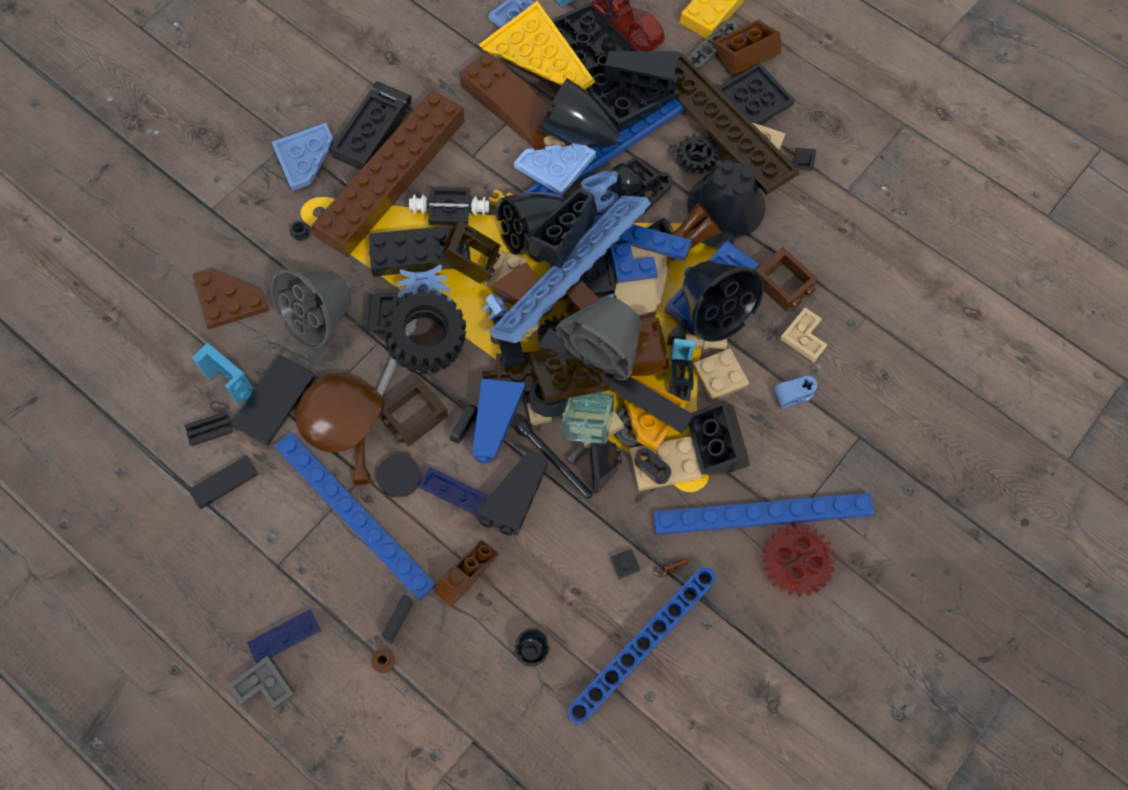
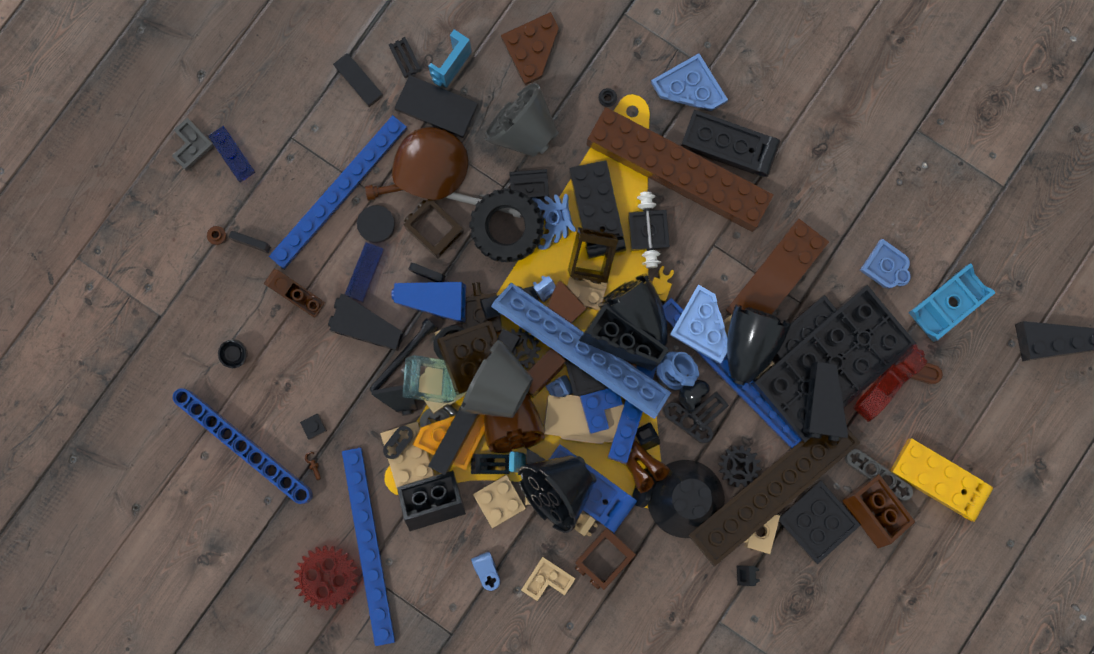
camera: 85 degrees right, 15 degrees up
(537, 46) = (844, 289): yellow wing -> none

